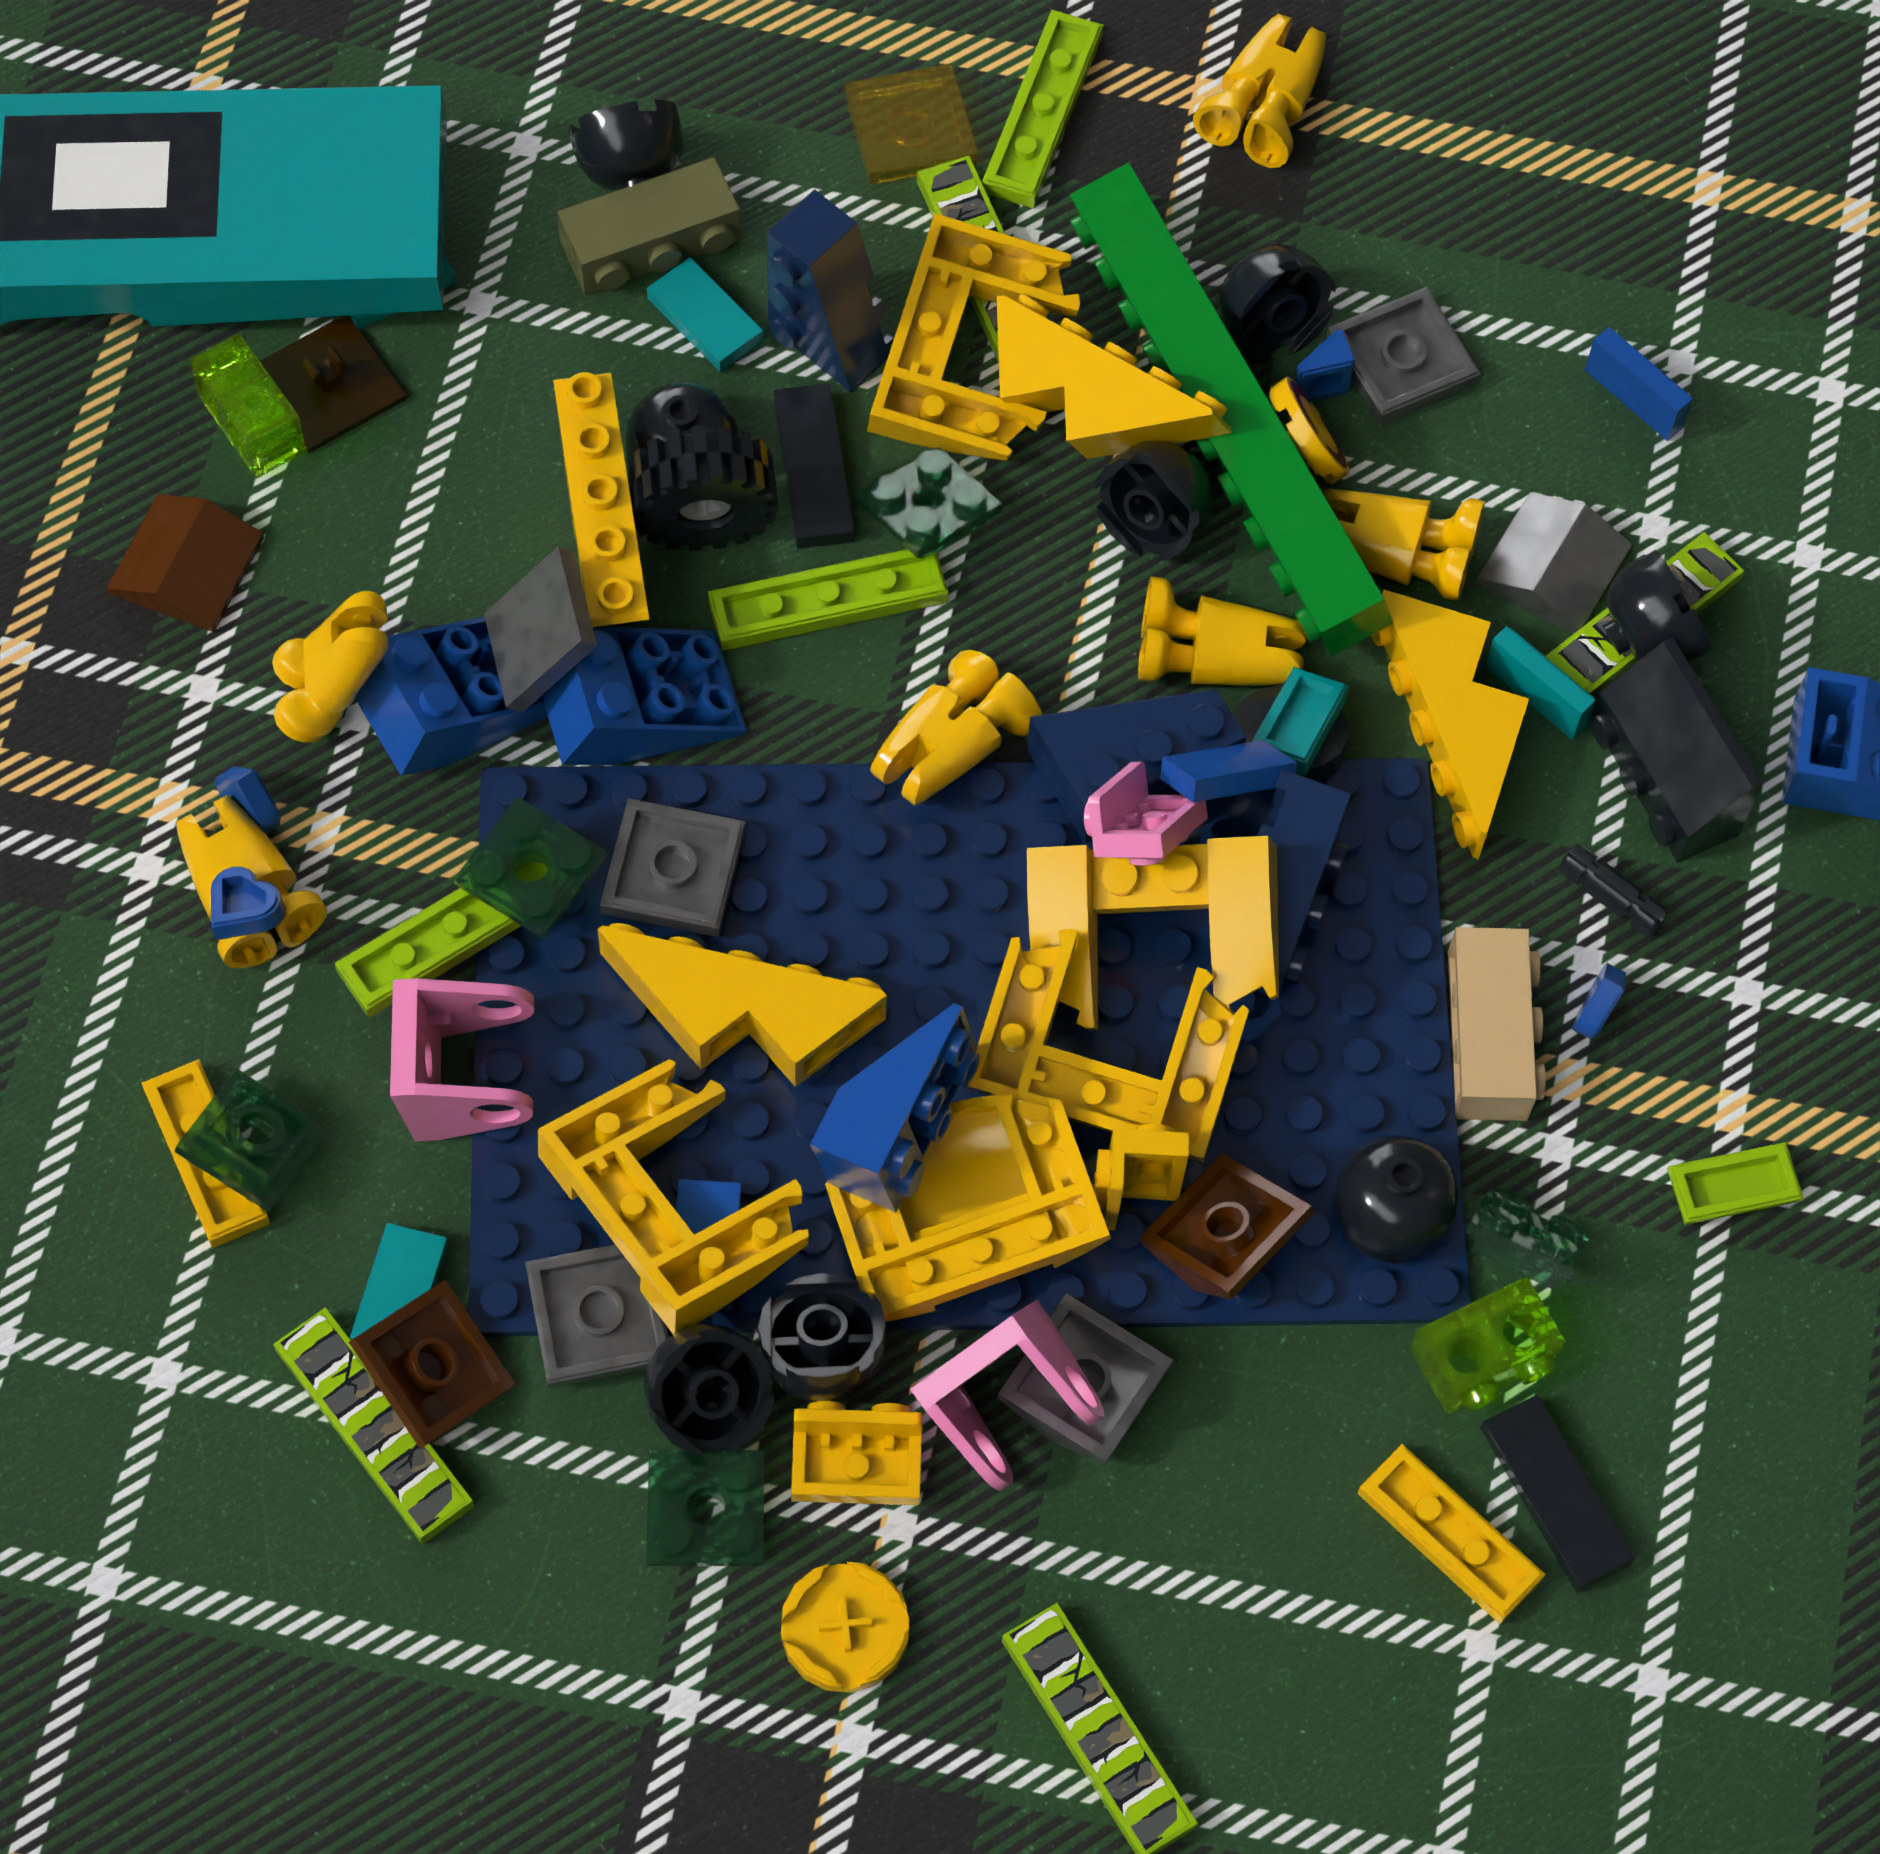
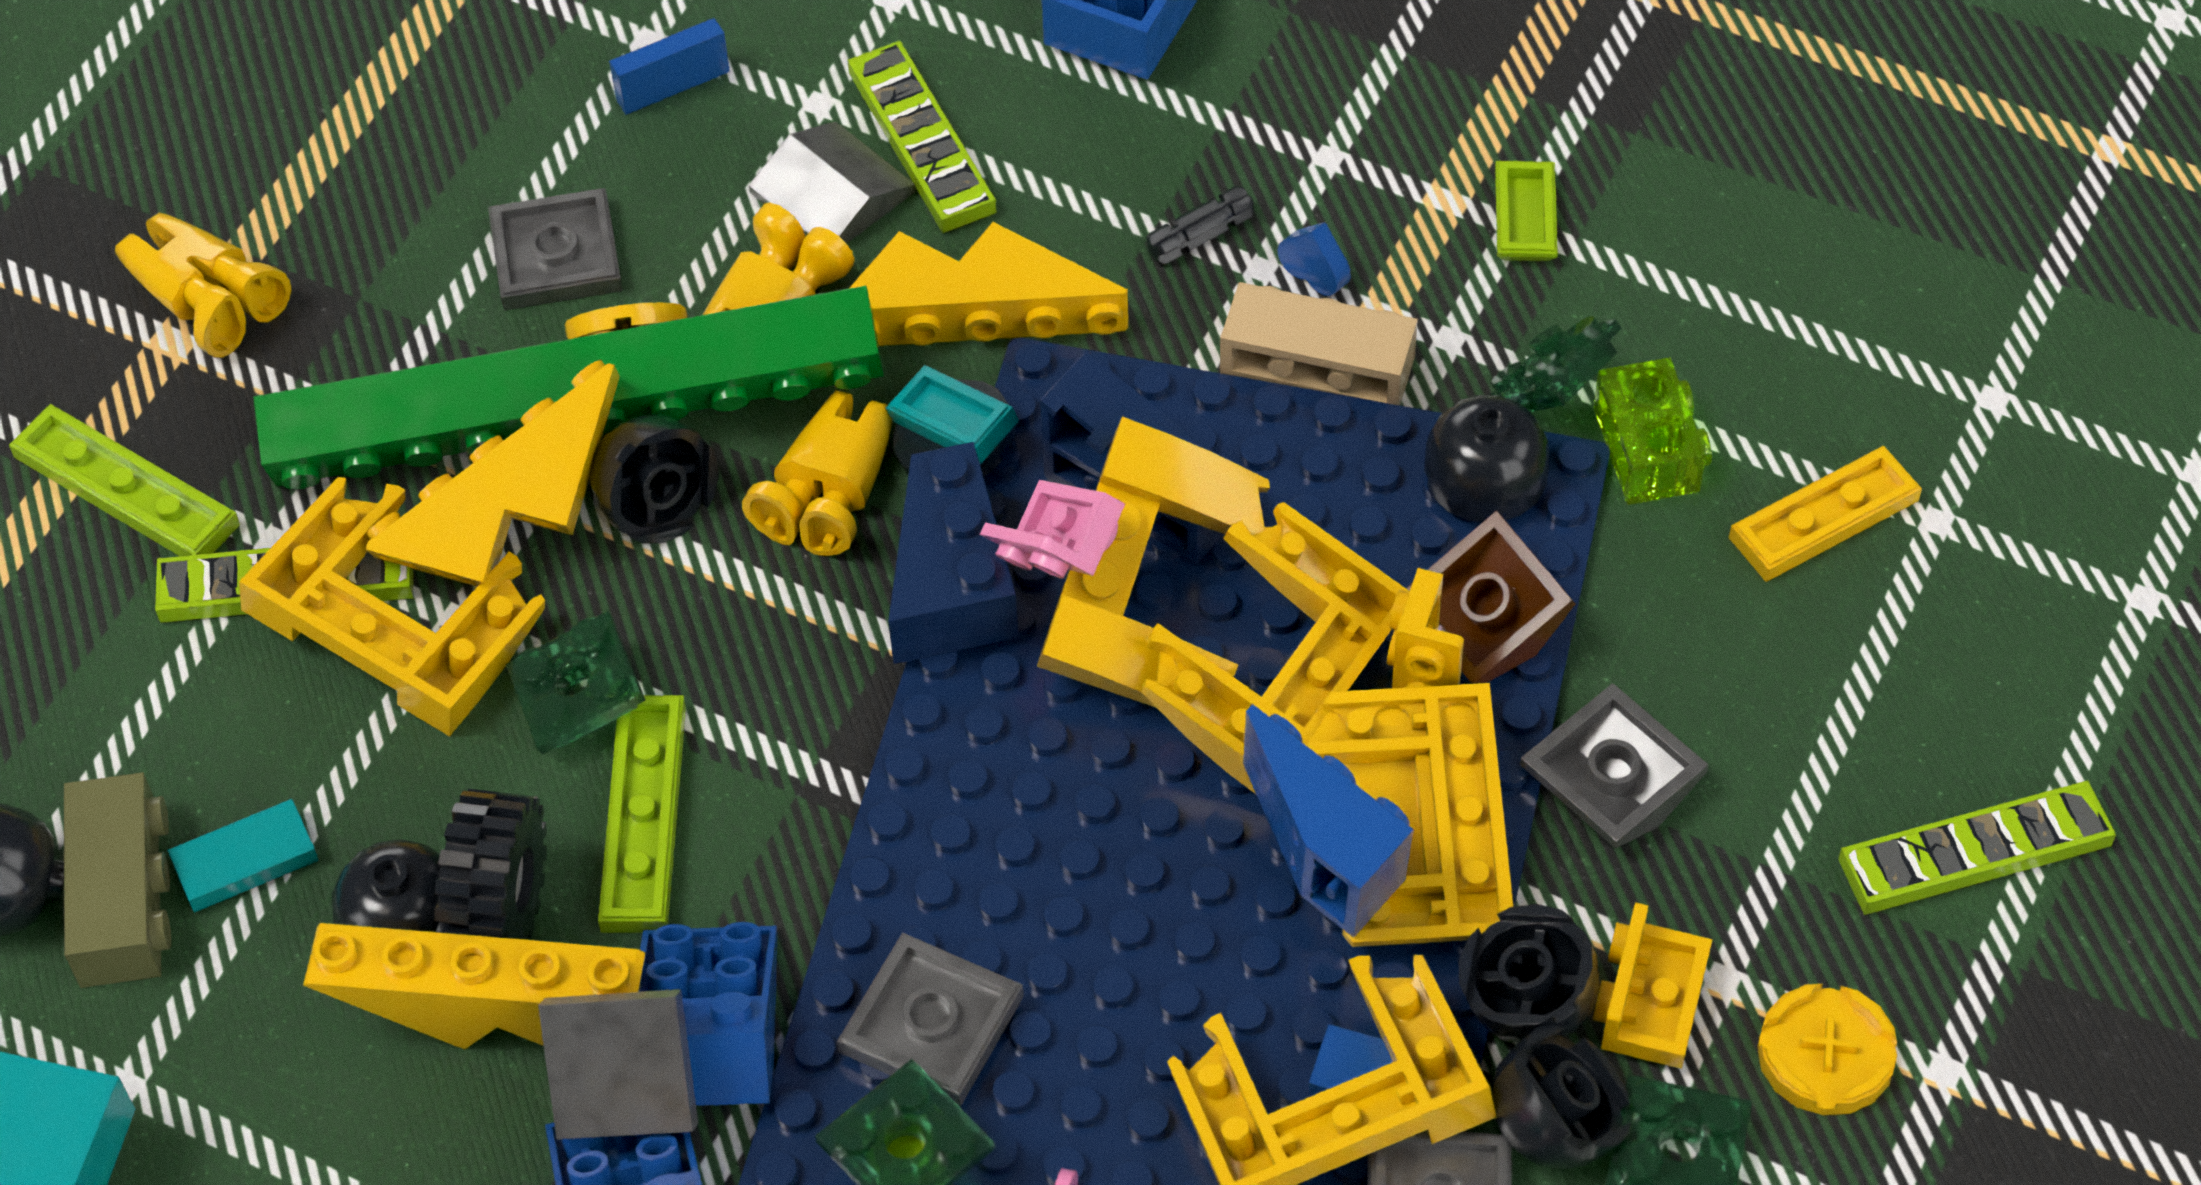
camera: 70 degrees left, 10 degrees down
(720, 998) = (1111, 989): yellow slope -> none
(813, 466) = (430, 783): black tile -> none
(822, 293) = (292, 706): dark blue wedge -> none
(909, 122) = (86, 608): clear yellow tile -> none
(942, 738) = (857, 737): yellow piece -> none
(956, 1415) = (1590, 830): bright pink hose -> none
(1225, 770) = (1012, 460): blue tile -> none
(1276, 300) = (452, 316): black cylinder -> none
(1327, 369) = (549, 300): blue slope -> none
(1541, 681) = (962, 220): teal tile -> none
(1557, 1493) = (1802, 420): black tile -> none
(1650, 608) = (941, 97): black cylinder -> none
(1675, 753) = (1085, 124): black slope -> none

